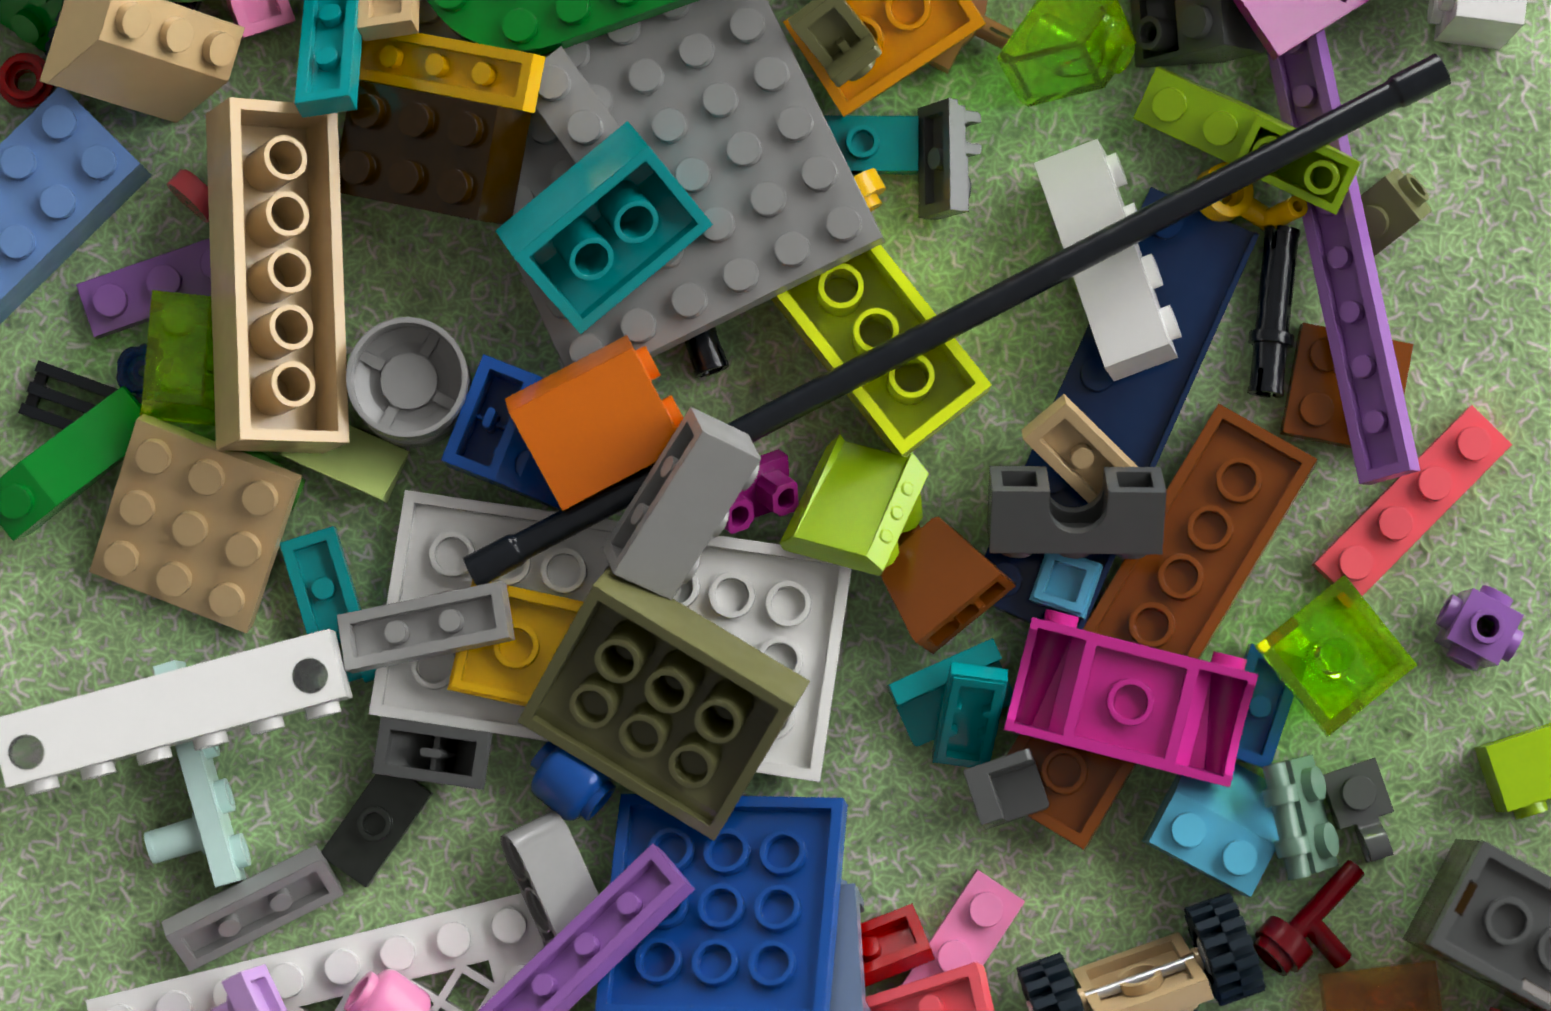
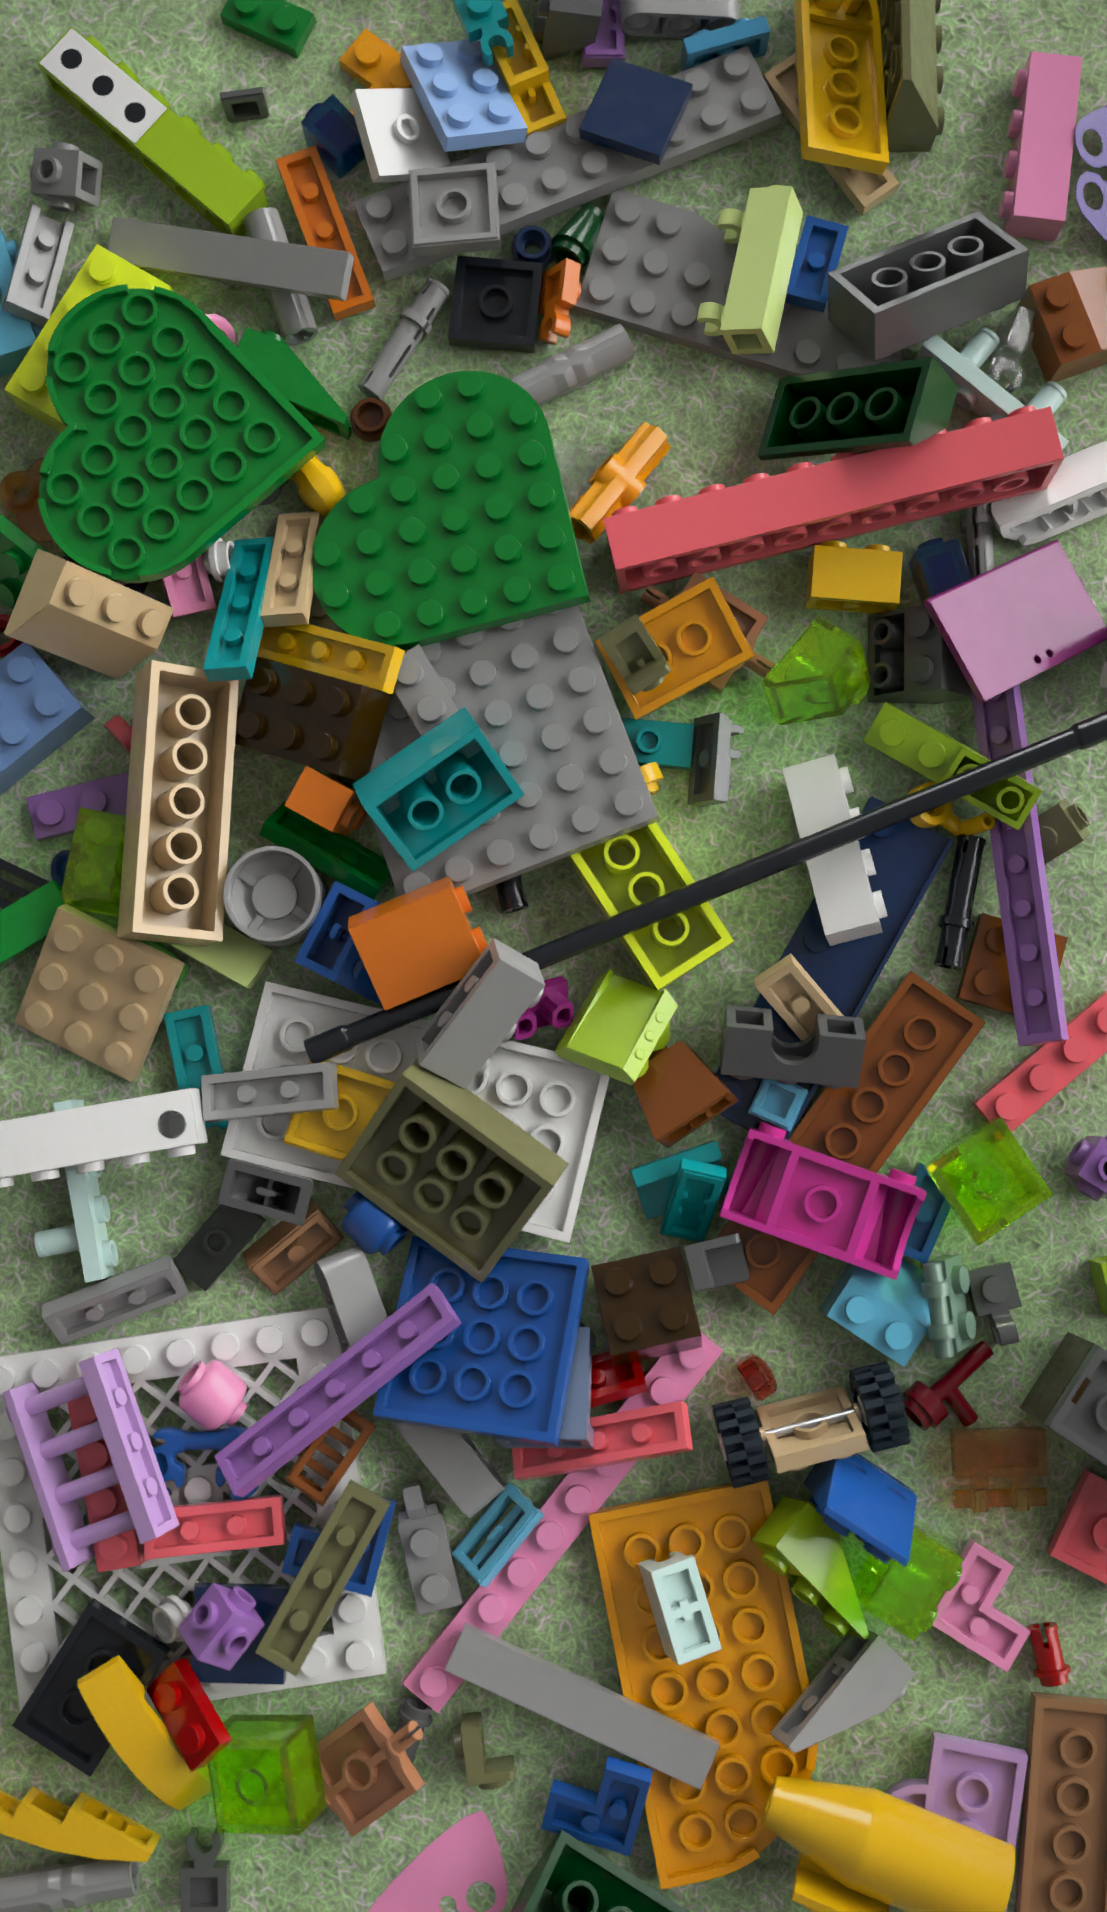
camera: 10 degrees right, 0 degrees up
(464, 256) = (327, 802): none -> orange brick
(468, 316) = (328, 851): none -> green plate
(469, 824) = (291, 1248): none -> medium nougat slope
(923, 852) = (646, 1306): none -> dark brown brick
(1070, 928) = (757, 1376): none -> clear red tile

